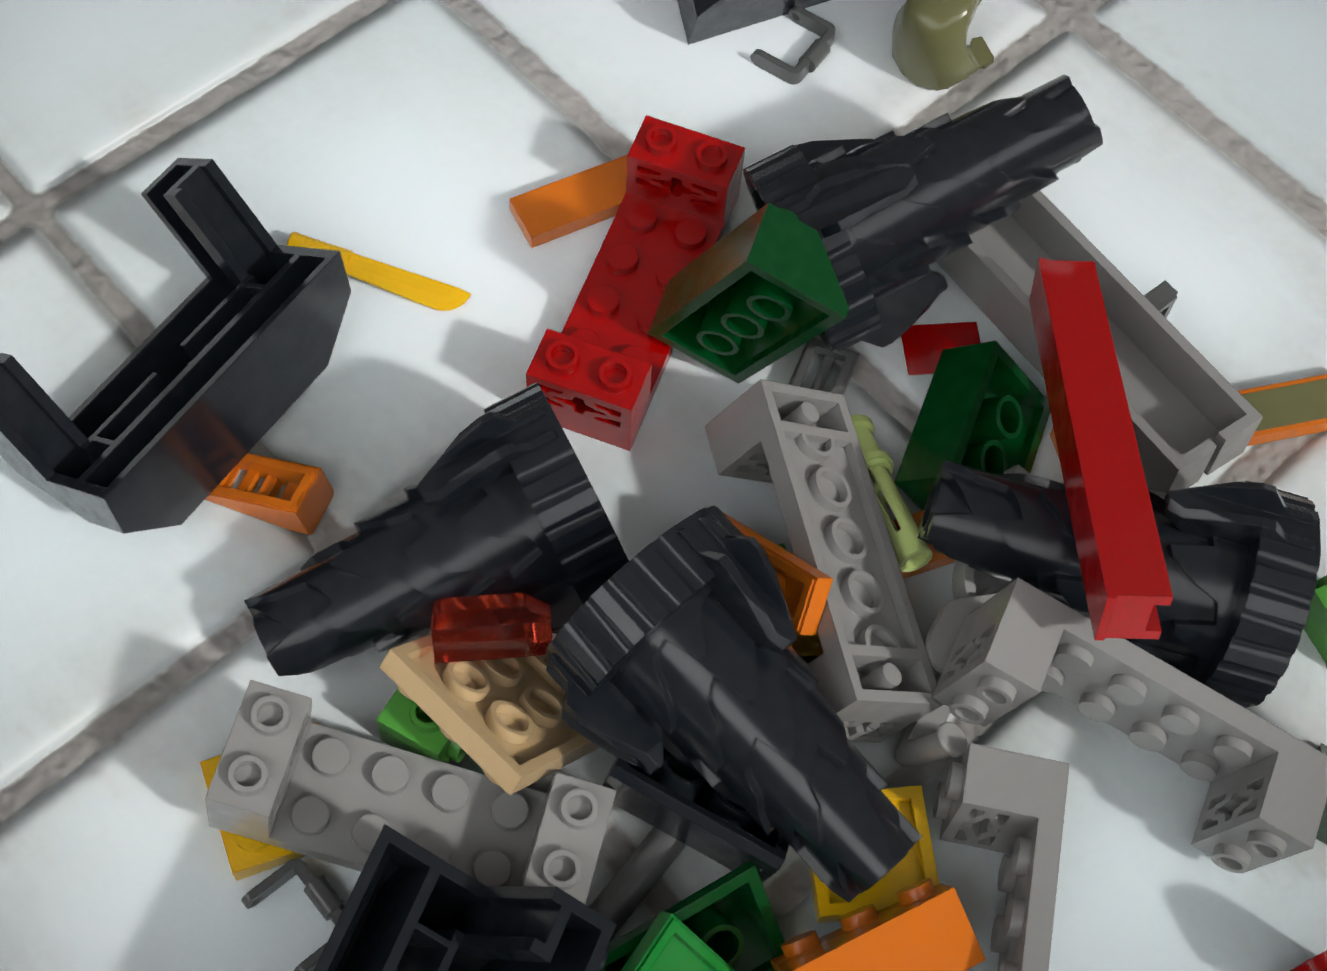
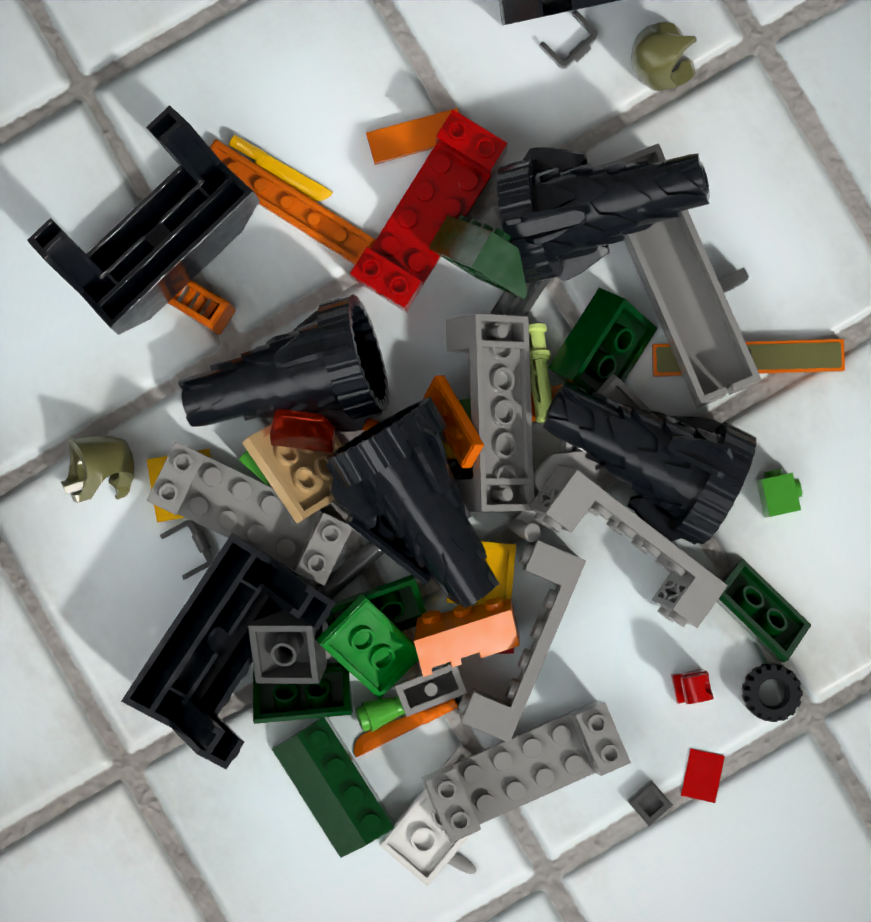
camera: 15 degrees right, 25 degrees up
(95, 759) = (95, 460): none -> olive piece
(438, 332) = (296, 207): none -> orange tile
(925, 343) = (607, 275): red sticker -> none
(1098, 454) = (645, 394): red tile -> none

